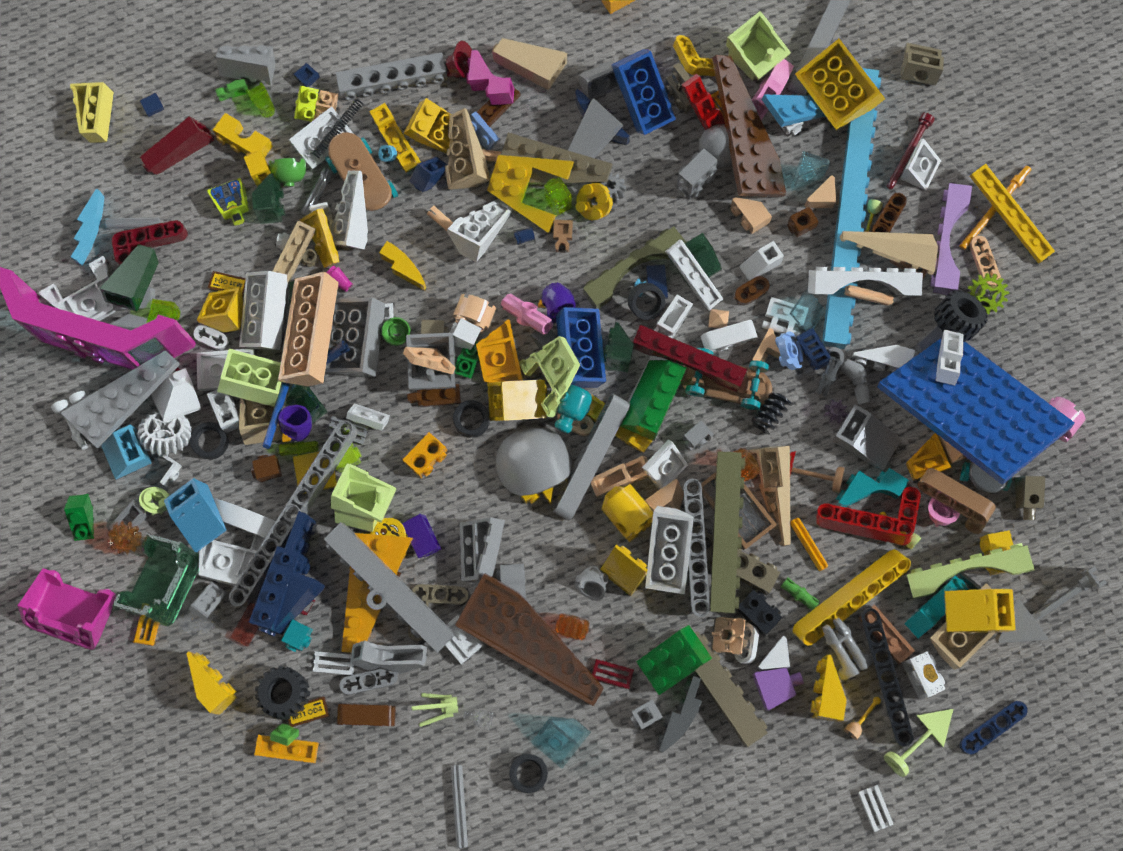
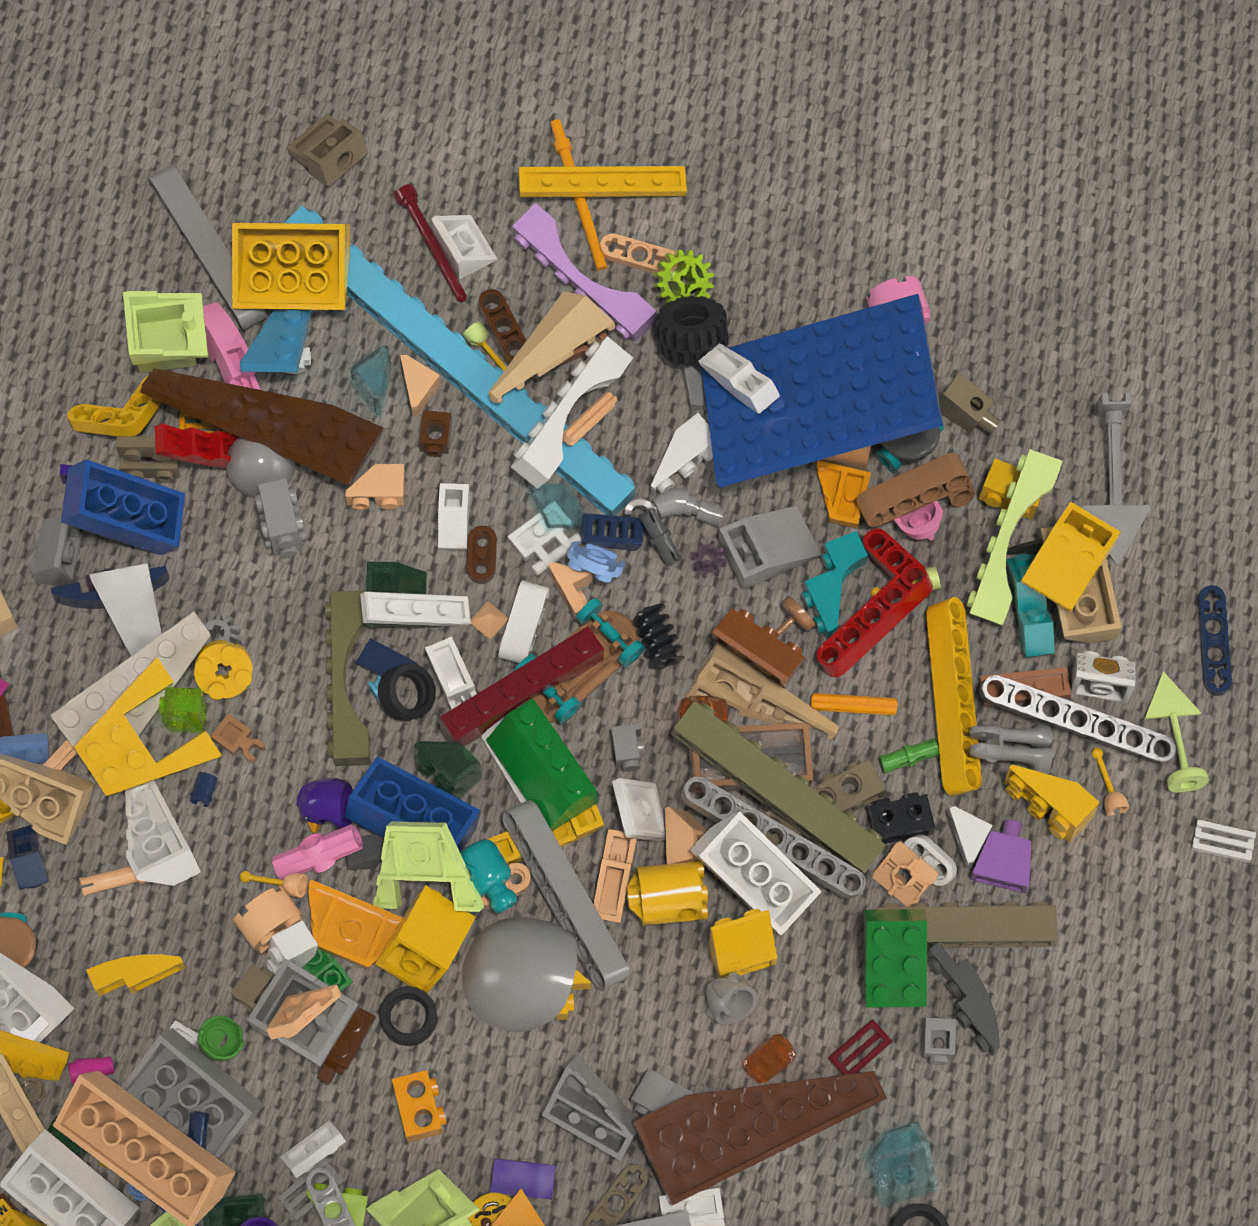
camera: 60 degrees left, 5 degrees down
(501, 313) = (294, 884): none -> light nougat hinge
(802, 469) = (759, 646): none -> dark orange slope

